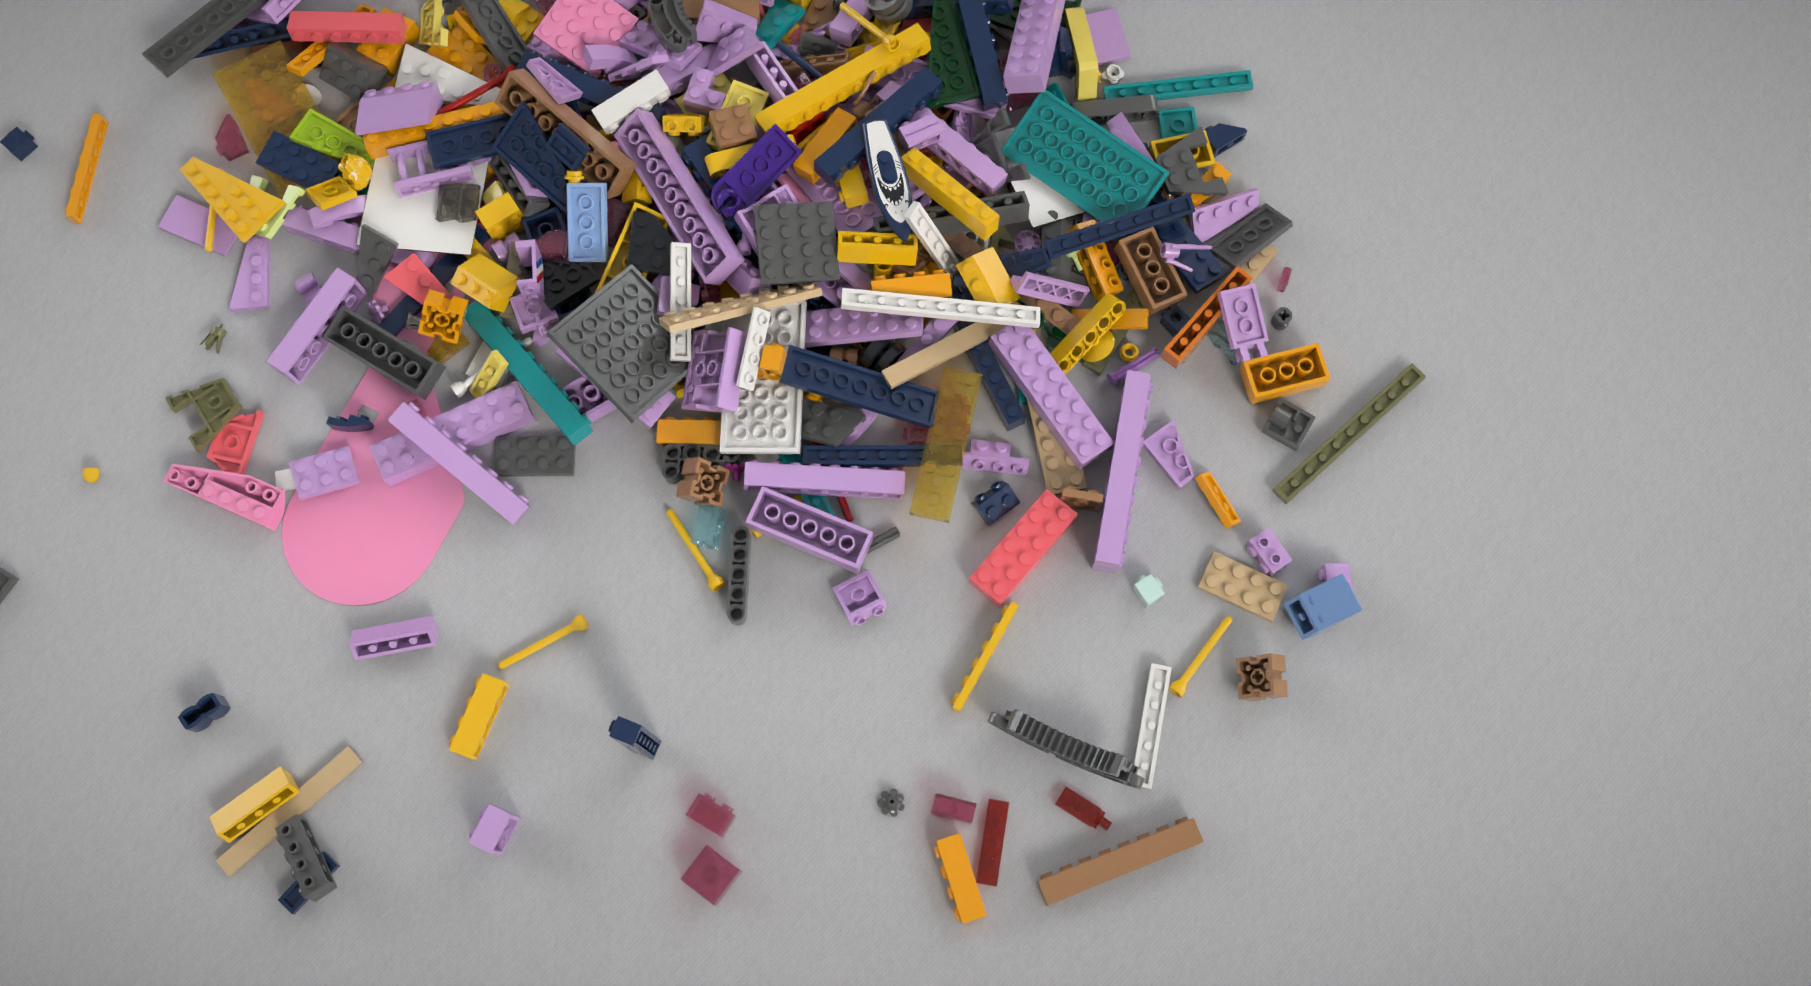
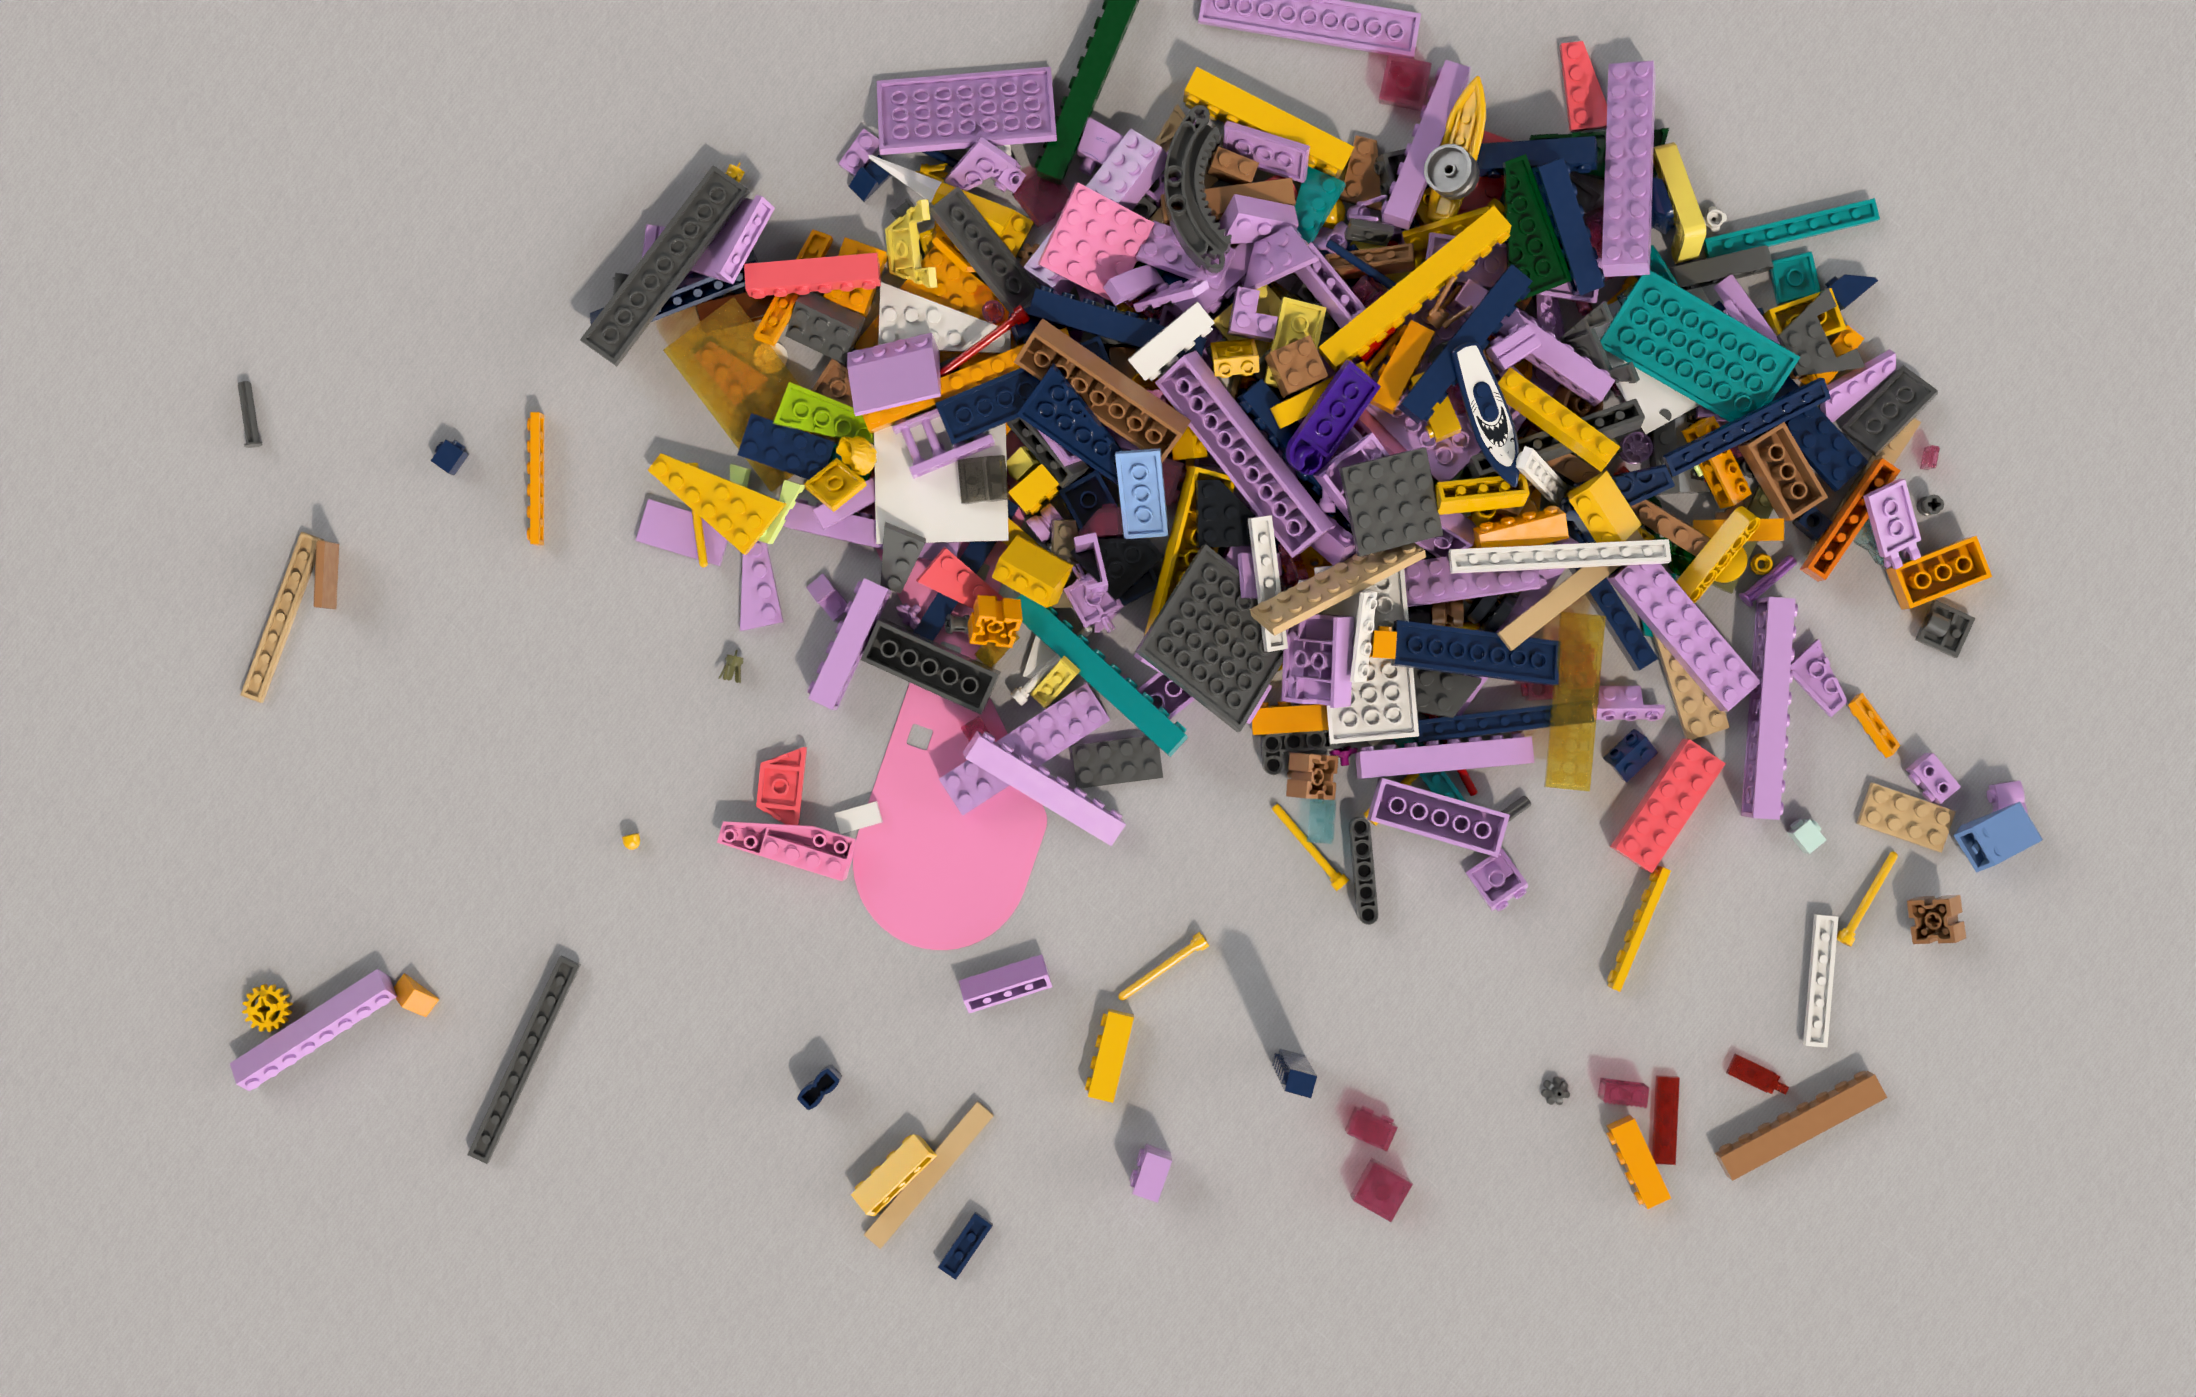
camera: 10 degrees left, 15 degrees up
(214, 403) = (752, 746): olive wing -> none
(230, 140) = (696, 424): clear pink slope -> none
(305, 858) = (960, 1224): dark grey brick -> none
(324, 473) = (890, 810): lavender plate -> none
(352, 424) = (913, 749): dark blue slope -> none
(555, 83) = (1079, 329): lavender wing -> none
(568, 147) = (1113, 413): dark blue plate -> none
(574, 176) = (1122, 443): yellow plate -> none
(796, 34) = (1342, 216): clear pink plate -> none
(890, 41) = (1467, 237): yellow piece -> none
(1049, 289) = (1670, 509): lavender fence -> none
(1067, 748) = (1740, 1019): dark grey gear -> none
(1081, 500) = (1733, 744): medium nougat plate -> none
(1108, 37) = (1704, 169): lavender tile -> none
(1171, 251) = (1806, 451): lavender plant -> none
(1348, 433) = (2013, 631): olive plate -> none

